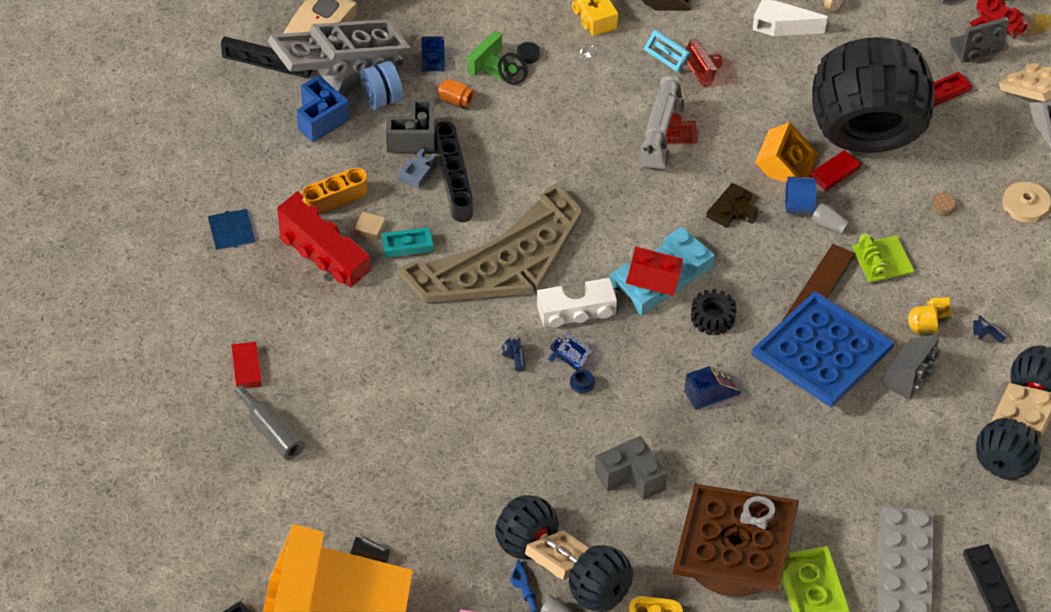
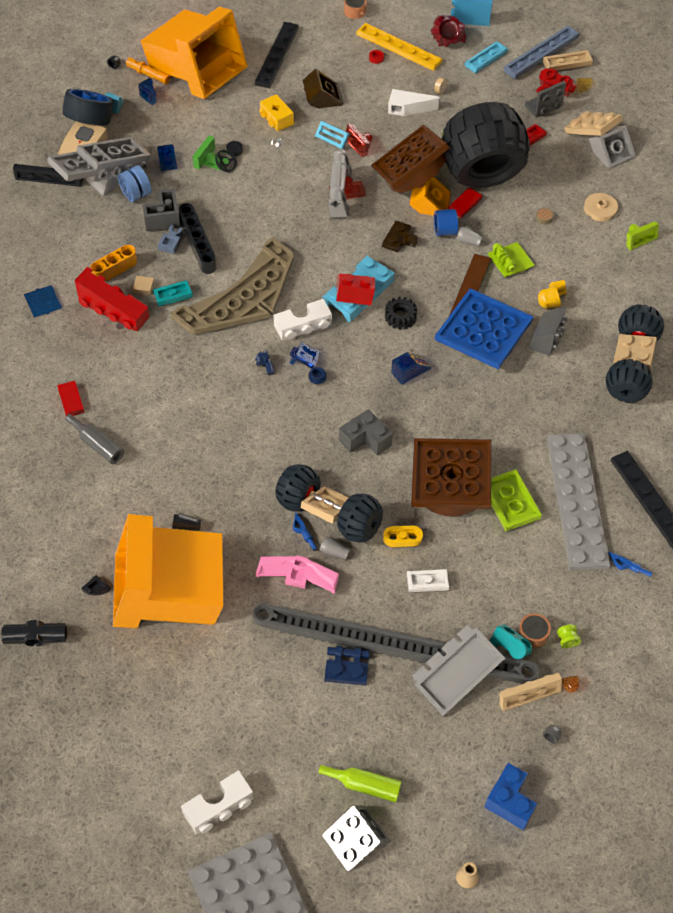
camera: 10 degrees left, 5 degrees up
(321, 110) = (94, 206): blue brick -> none
(455, 93) = (188, 183): orange brick -> none
(762, 522) = (469, 460): light grey piece -> none
(768, 103) = (412, 160): none -> reddish brown piece
(982, 328) = (589, 298): dark blue plate -> none

